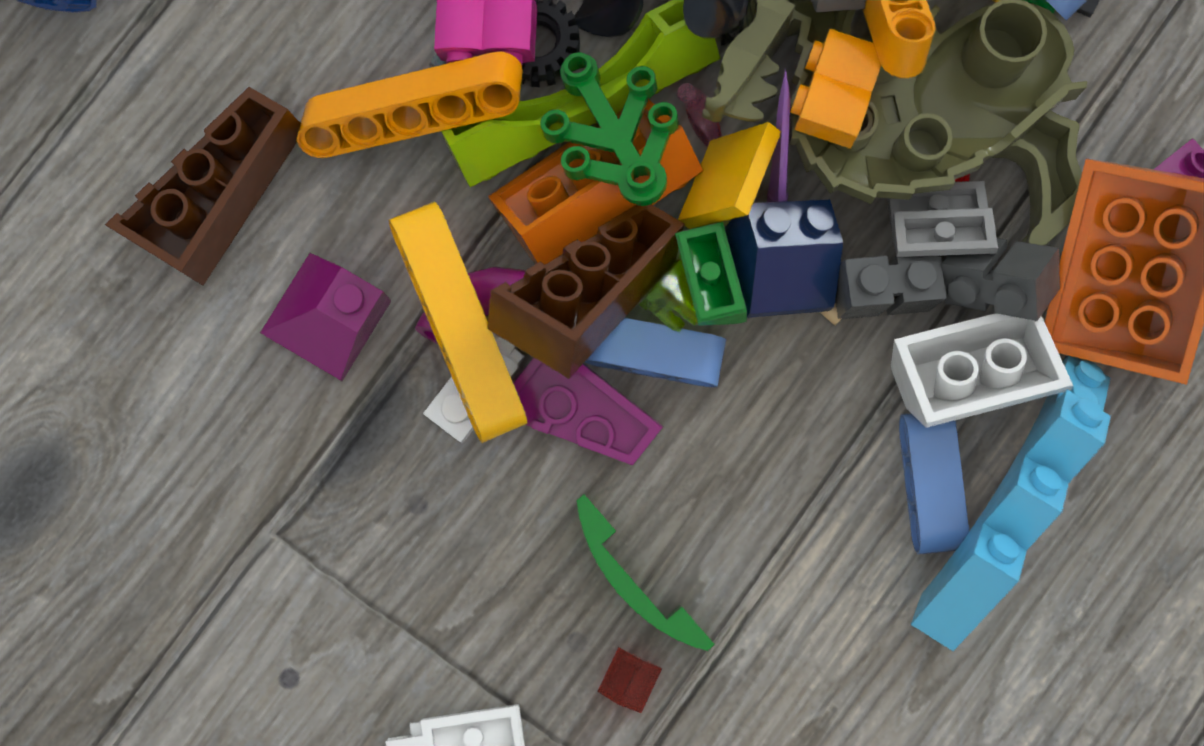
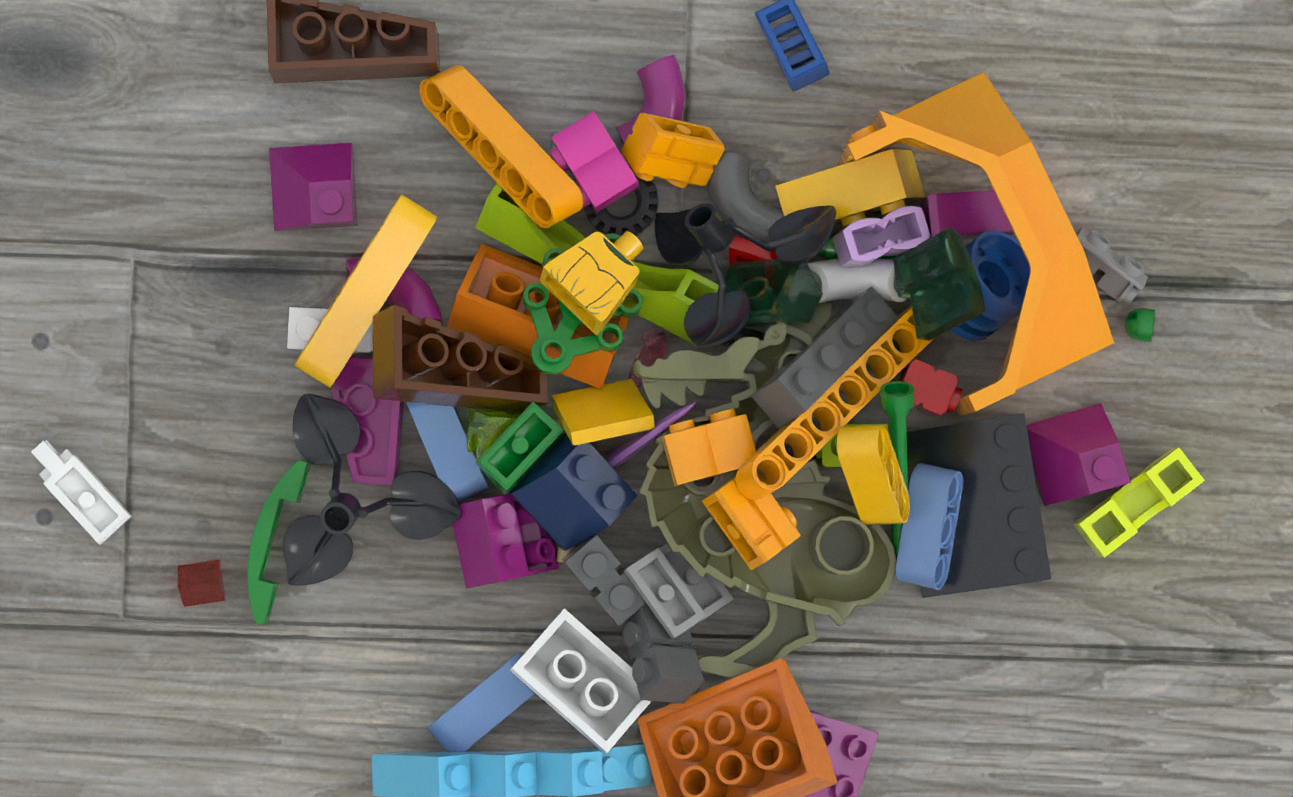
camera: 55 degrees right, 5 degrees up
(597, 91) = (594, 277): none -> yellow torso
(676, 543) = (318, 544): none -> black plant
(784, 362) = (501, 542): none -> magenta slope
(946, 94) = (754, 527): none -> light orange brick

